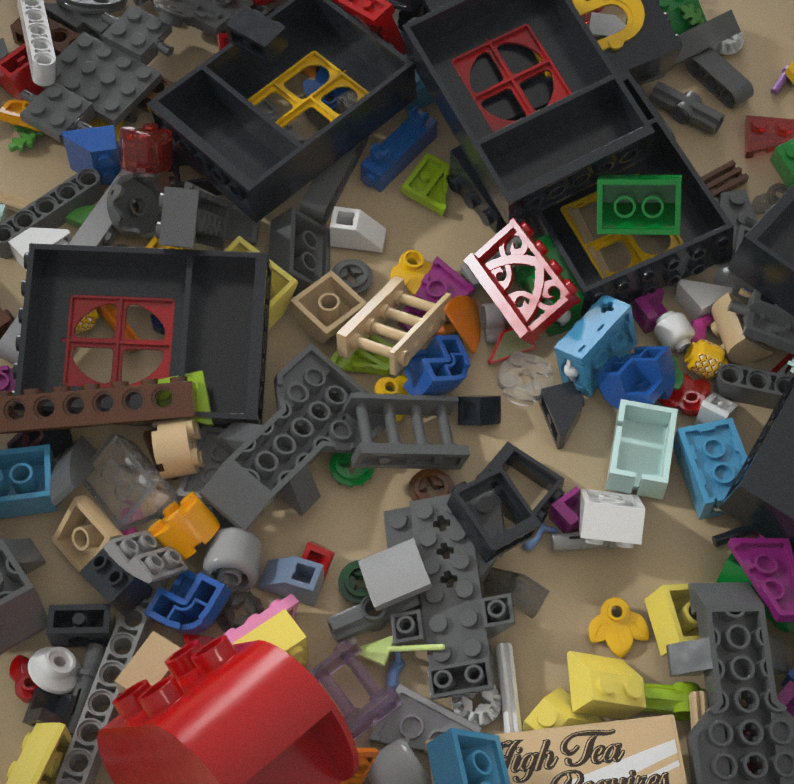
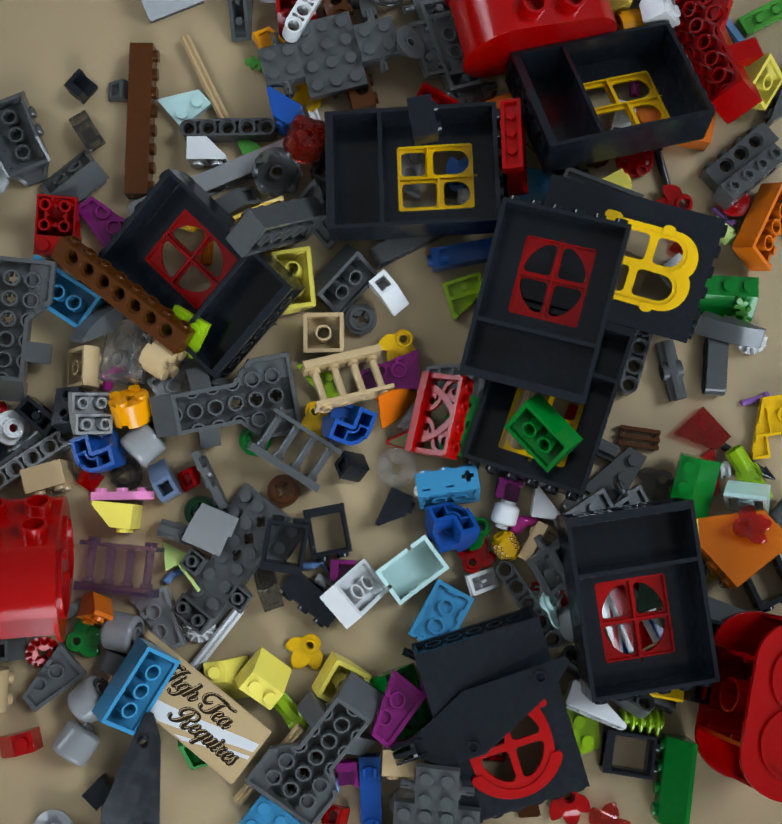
camera: 45 degrees right, 25 degrees up
(334, 532) = (210, 480): none -> dark grey wing
(570, 564) = (307, 595): none -> black brick

